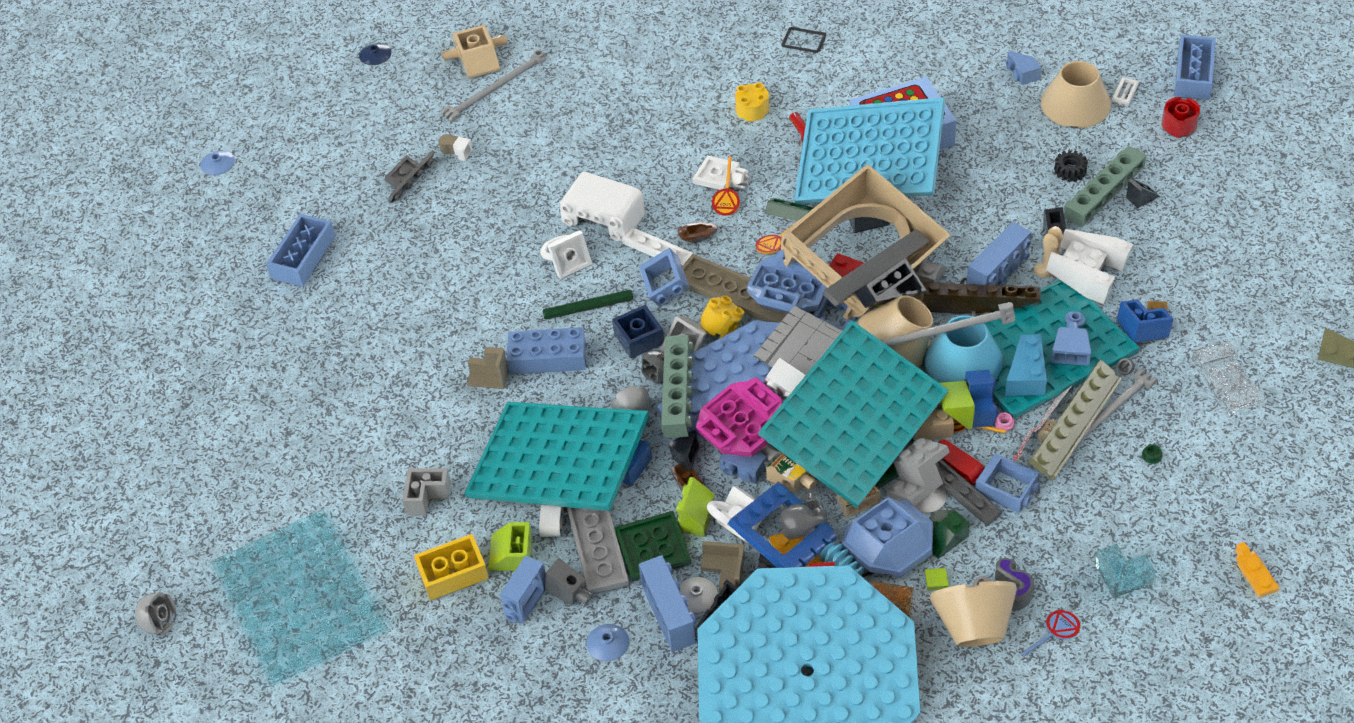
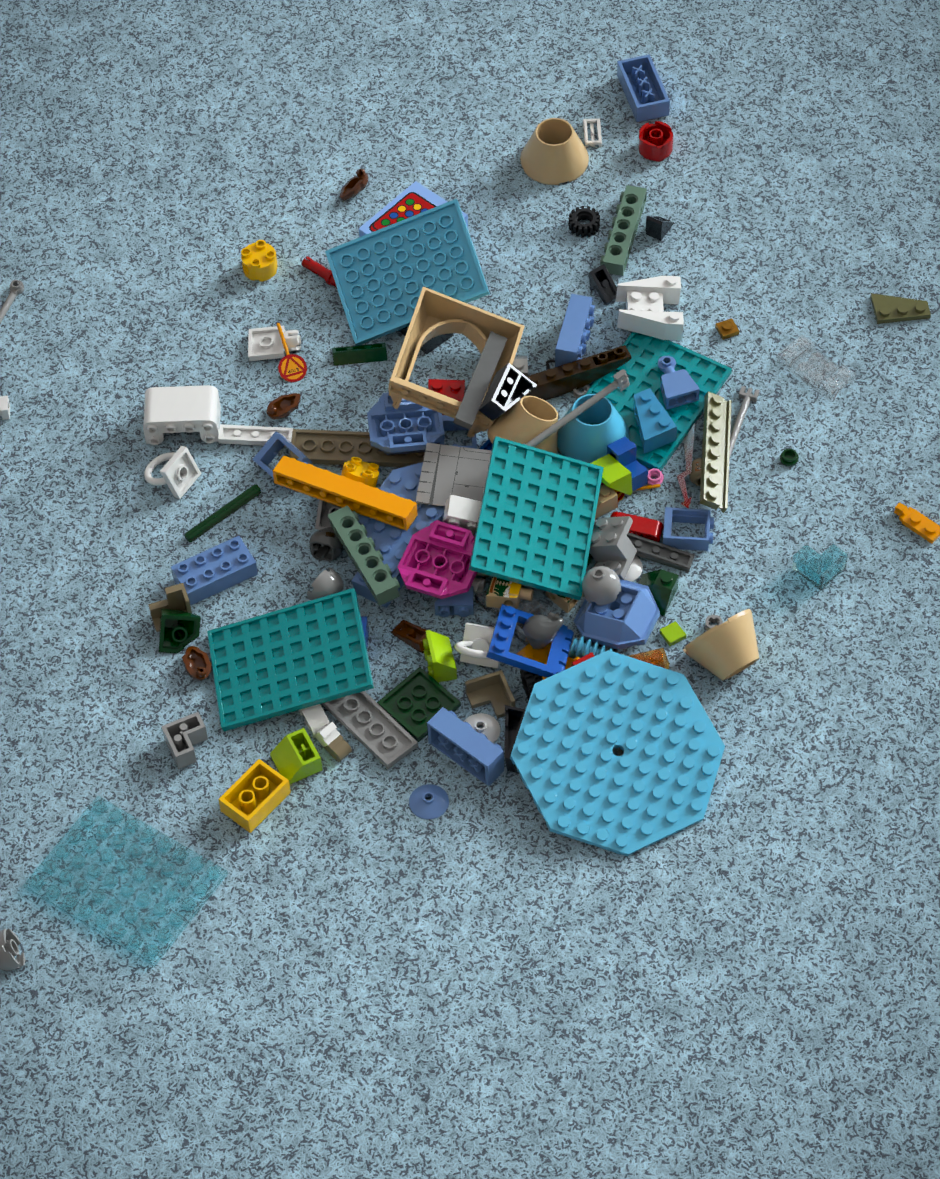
camera: 30 degrees left, 5 degrees up
(480, 389) = (177, 630): none -> dark green slope
(480, 426) = (196, 663): none -> reddish brown arm
(523, 589) = (334, 787): medium blue window -> none
(551, 545) = (333, 742): none -> leg
(566, 583) = (367, 767): dark grey torso -> none
(638, 331) = (289, 520): dark blue brick -> none
(685, 450) = (396, 612): black slope -> none
(695, 323) = (344, 491): none -> light orange brick
(769, 243) = (357, 392): piece -> none
(800, 48) = (271, 190): black piece -> none
(876, 67) = (354, 185): none -> reddish brown arm
(881, 501) = (601, 585): none -> light grey cylinder
(1024, 67) = (491, 139): medium blue slope -> none
(1024, 581) = (728, 606): dark grey animal -> none
(1051, 243) = (615, 302): tan piece -> none
(1061, 625) = (791, 629): piece -> none
(1123, 363) = (724, 388): dark grey hinge -> none
(1144, 323) = (723, 345): blue brick -> none

